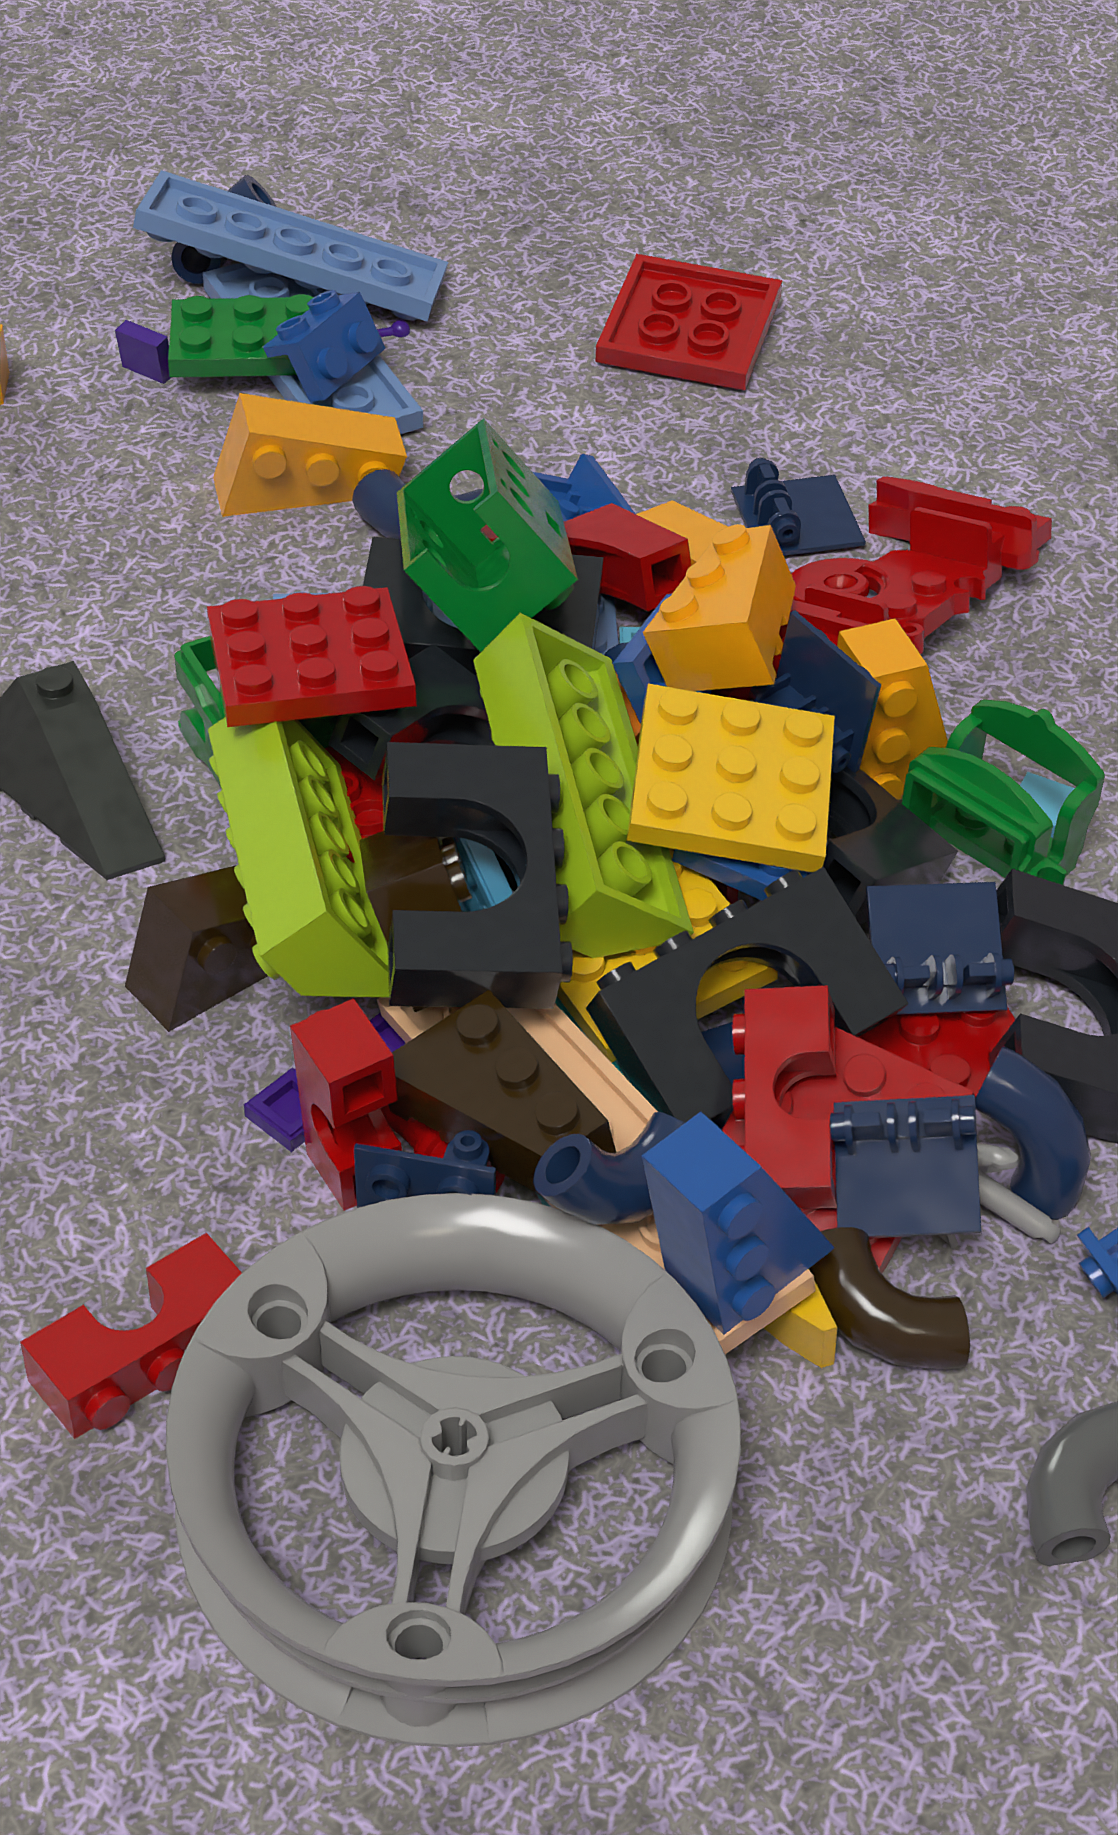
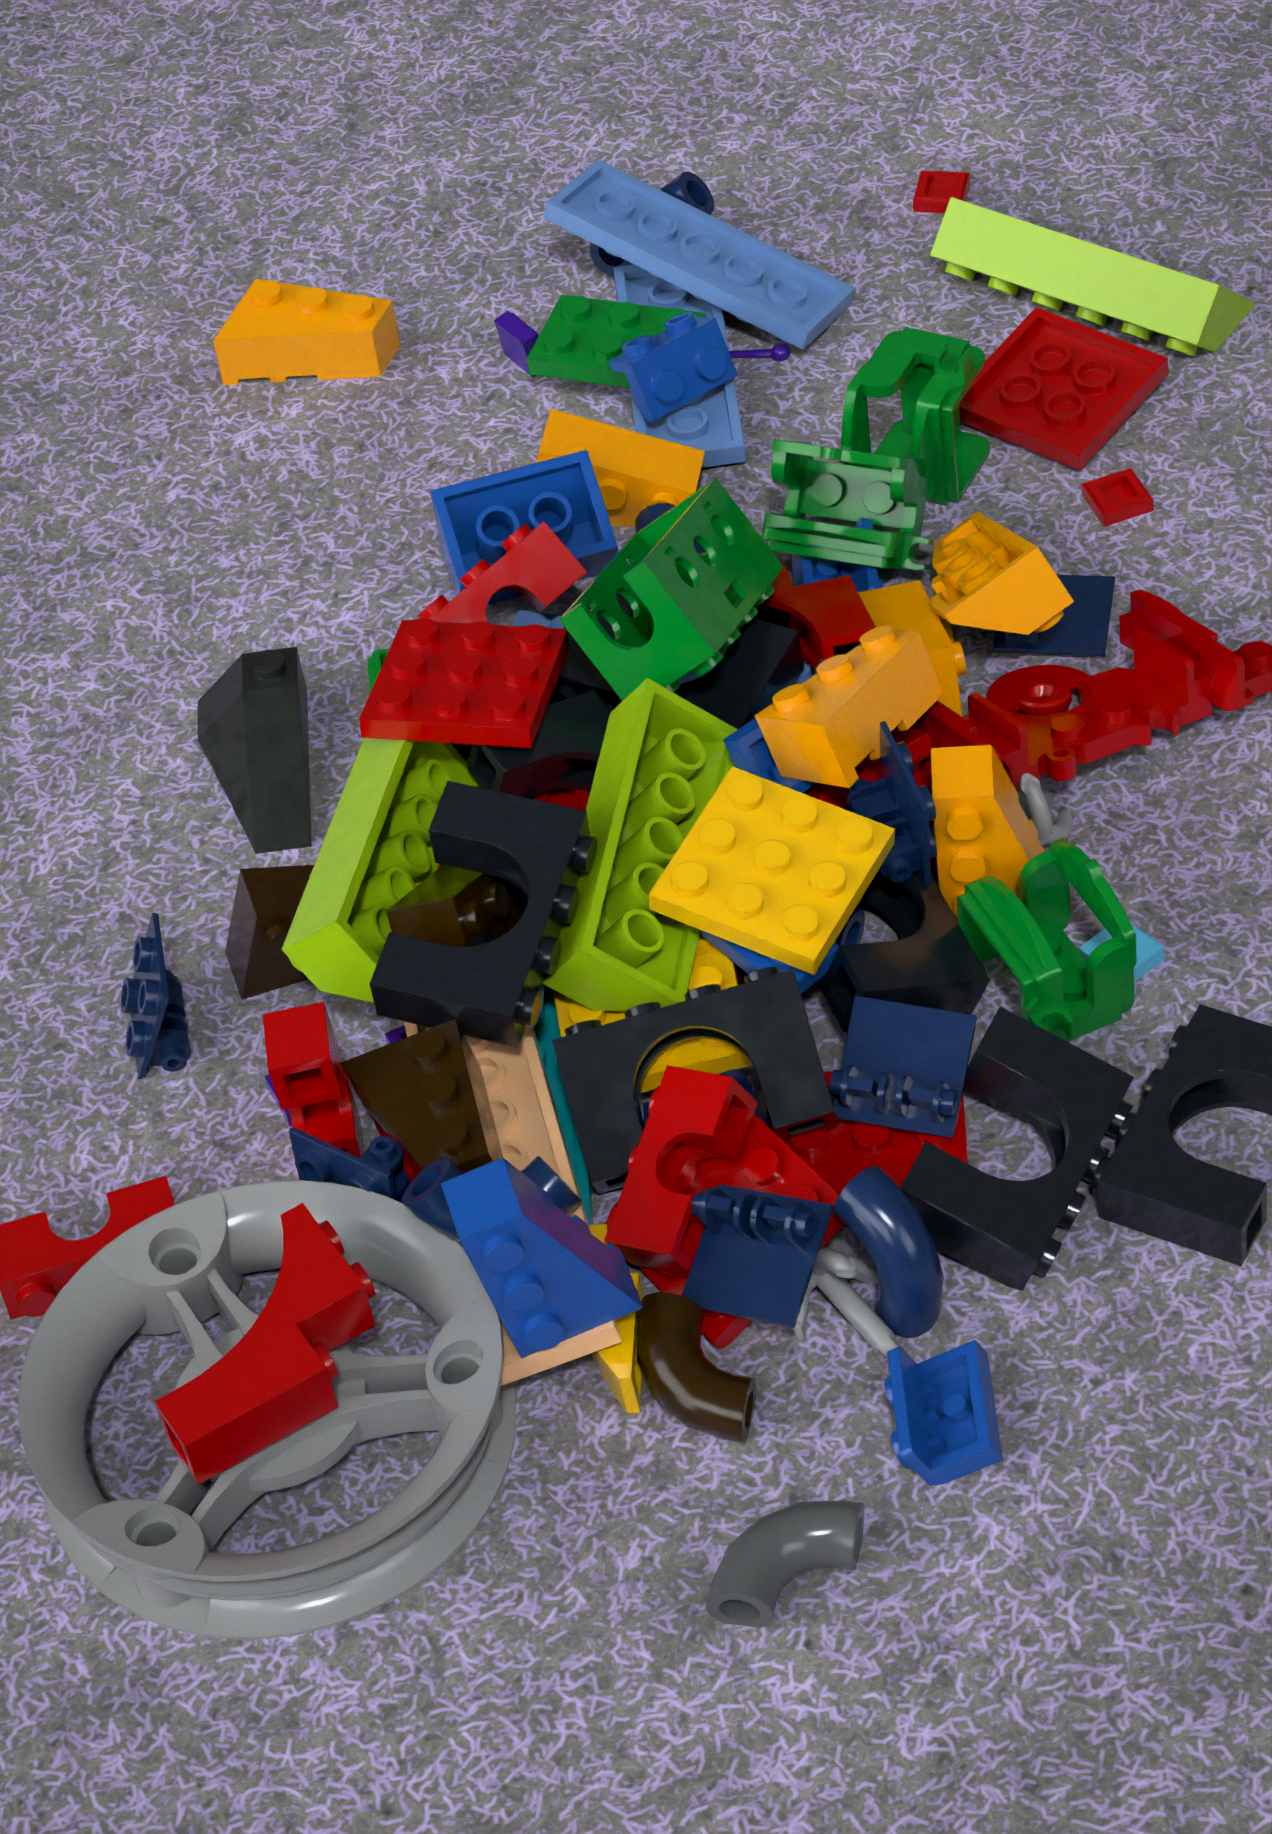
camera: 30 degrees right, 0 degrees up
(88, 1051) = (156, 1007): none -> dark blue hinge
(255, 514) = (487, 510): none -> blue slope
(294, 542) = (534, 566): none -> red arch
(477, 175) = (937, 187): none -> red tile
(488, 1413) = (282, 1365): none -> red arch
(555, 437) = (848, 493): none -> green animal
(602, 350) = (933, 380): none -> green animal
(661, 222) = (1089, 277): none -> lime slope
(757, 479) = (995, 580): none -> light orange wedge
(793, 407) = (1117, 497): none -> red tile

